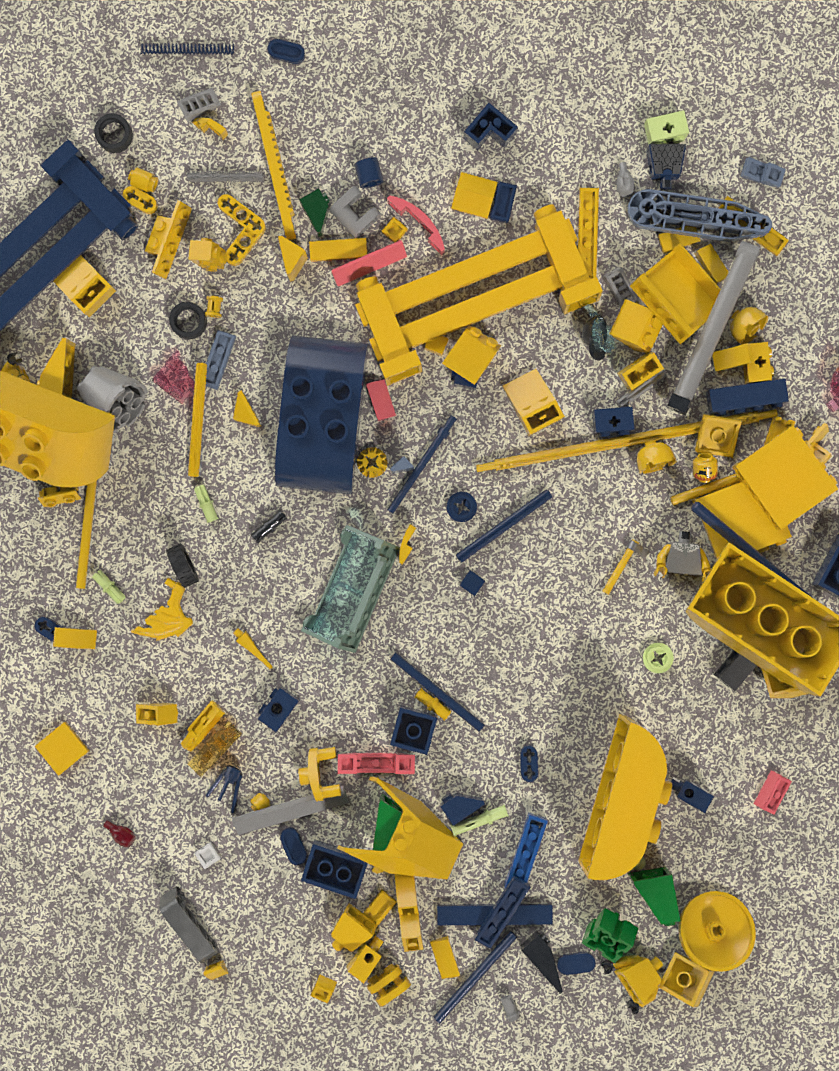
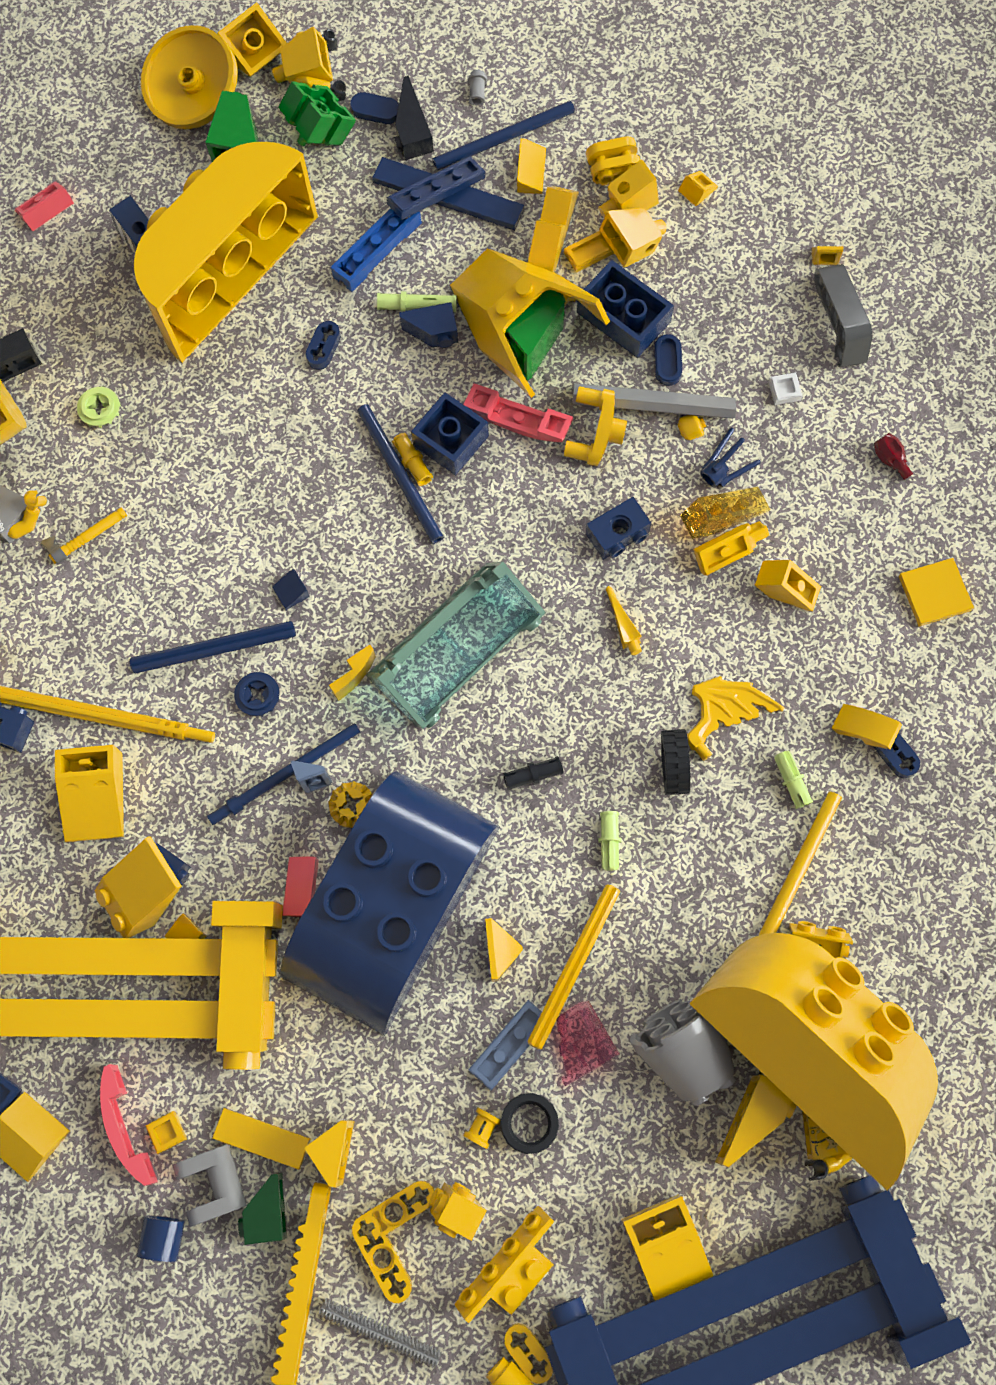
camera: 150 degrees left, 15 degrees down
(369, 263) = (225, 1095): coral slope -> none

